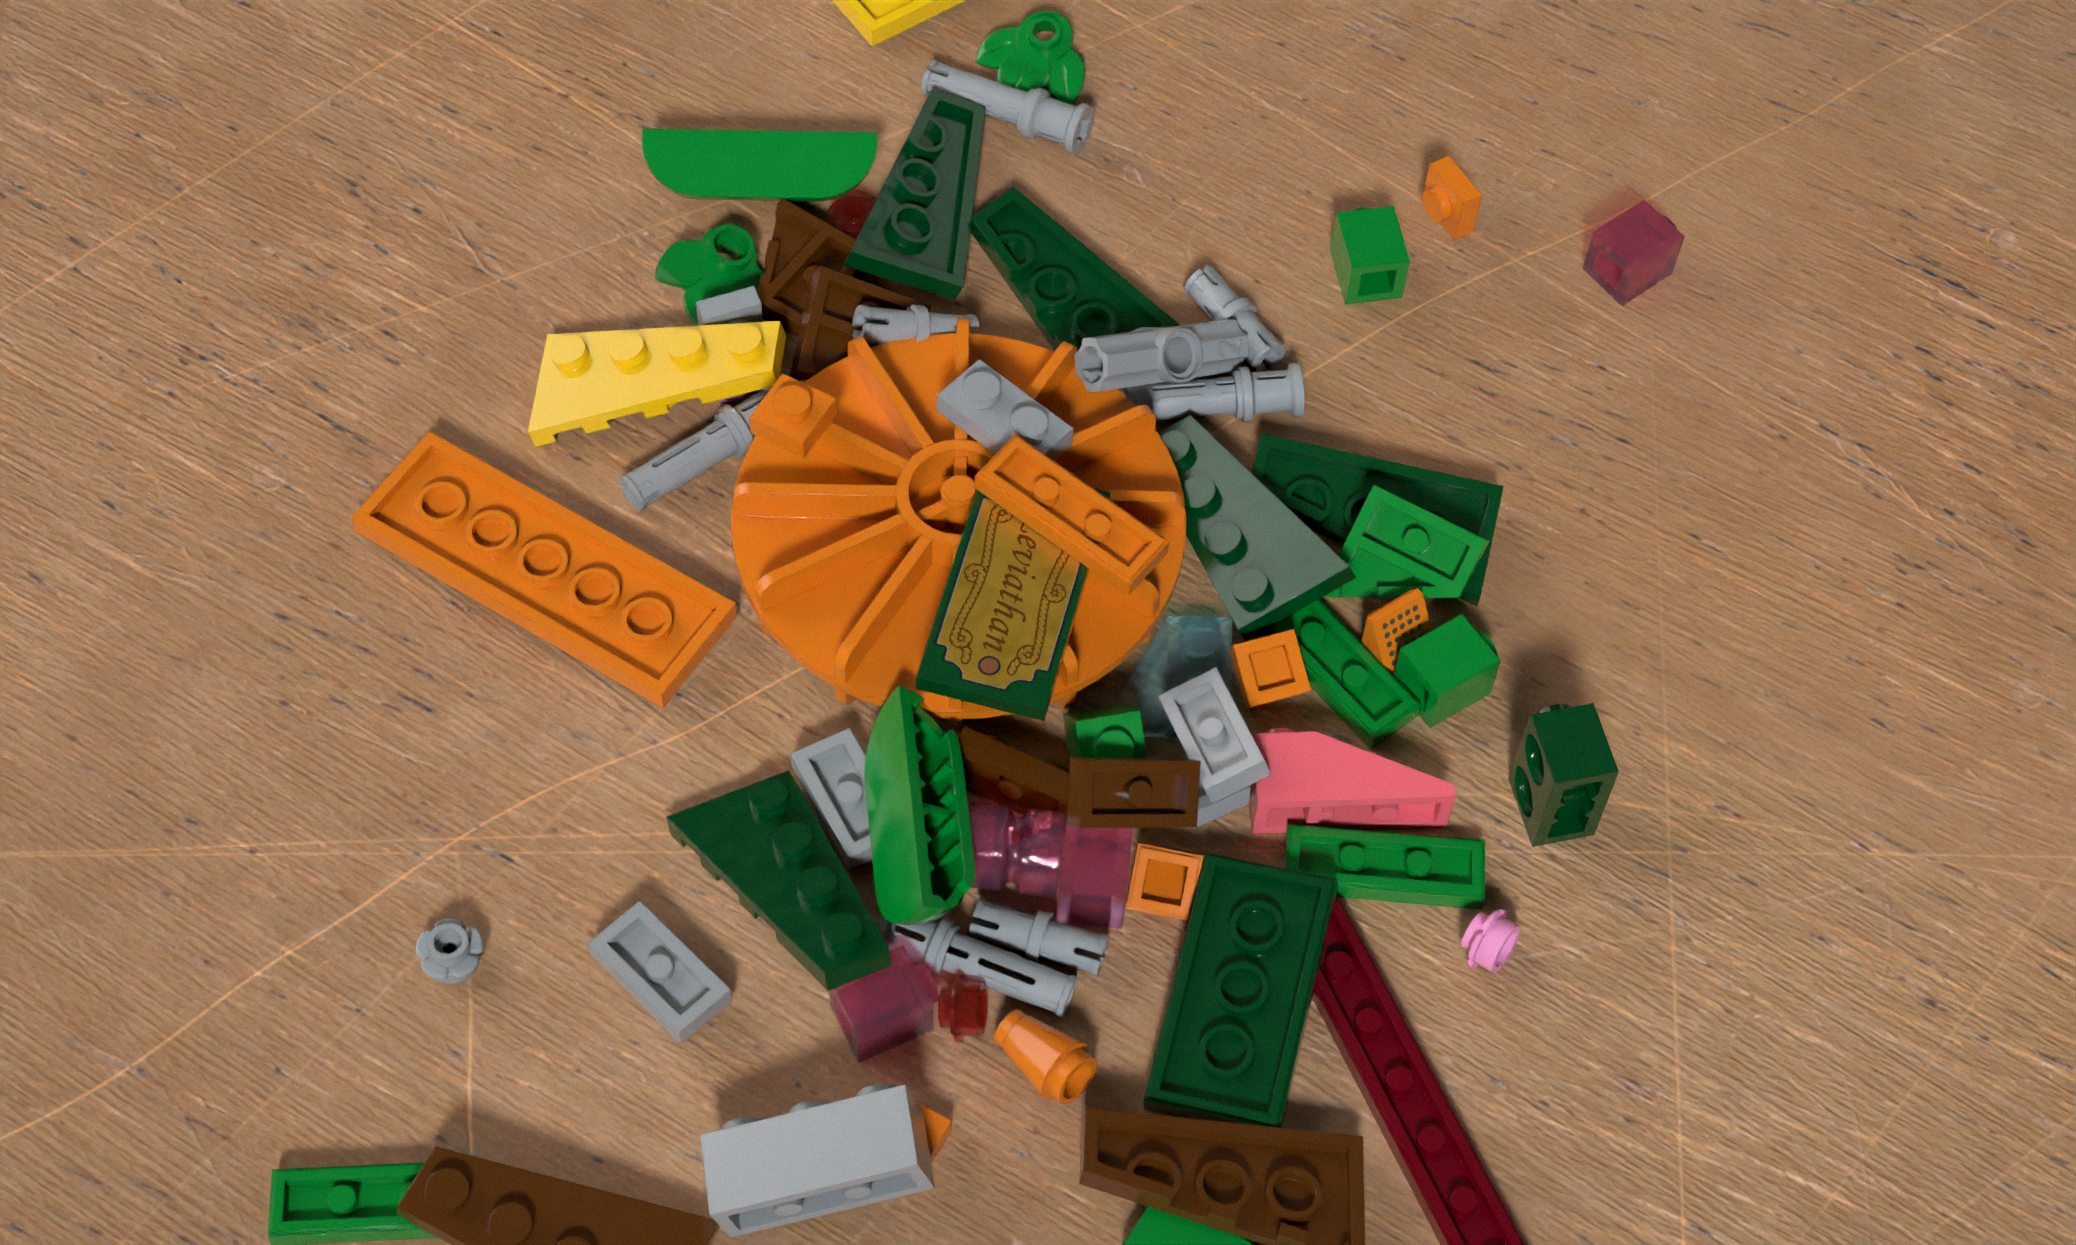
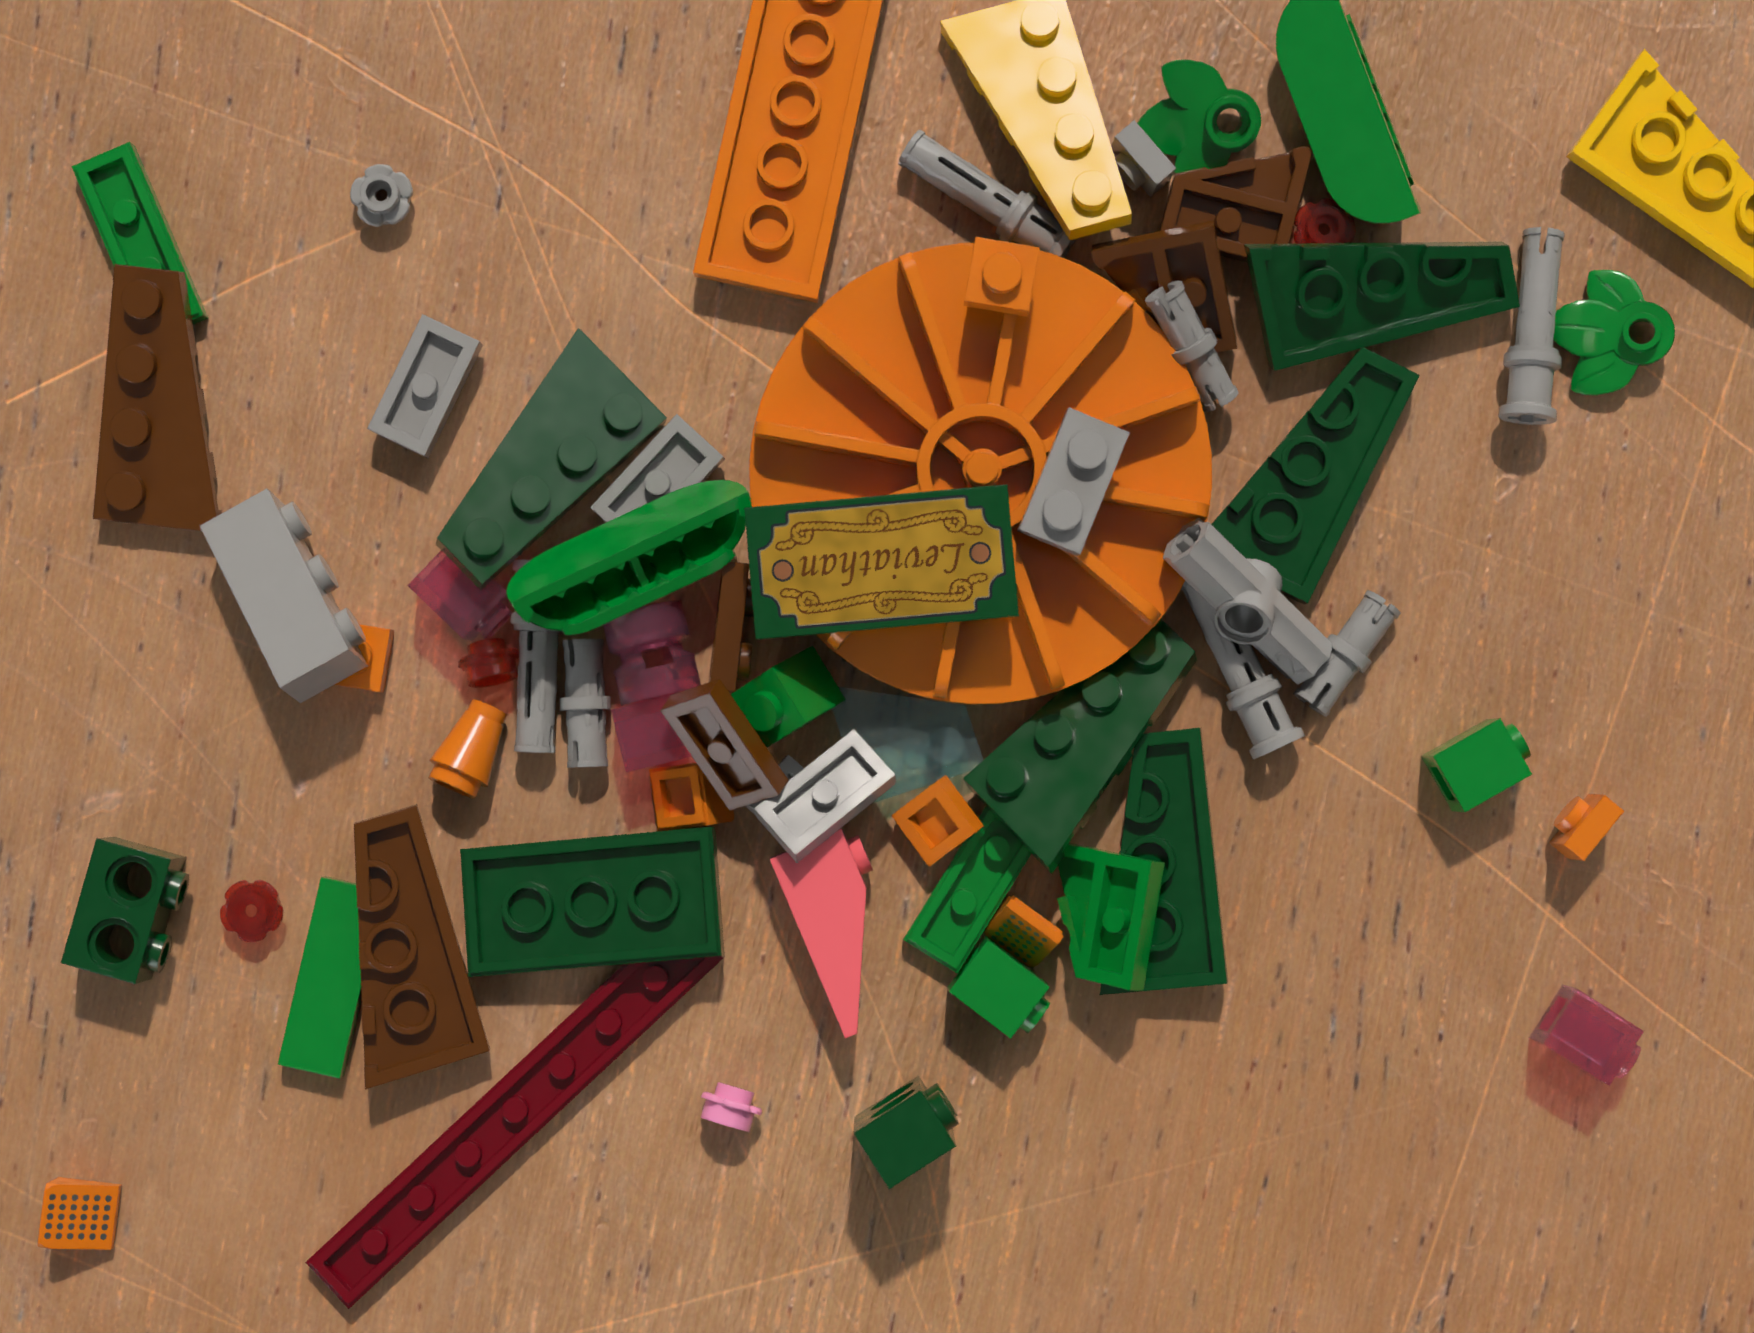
camera: 75 degrees right, 30 degrees up
(1071, 514) = (971, 588): orange tile -> none
(1391, 864) = (777, 989): green tile -> none

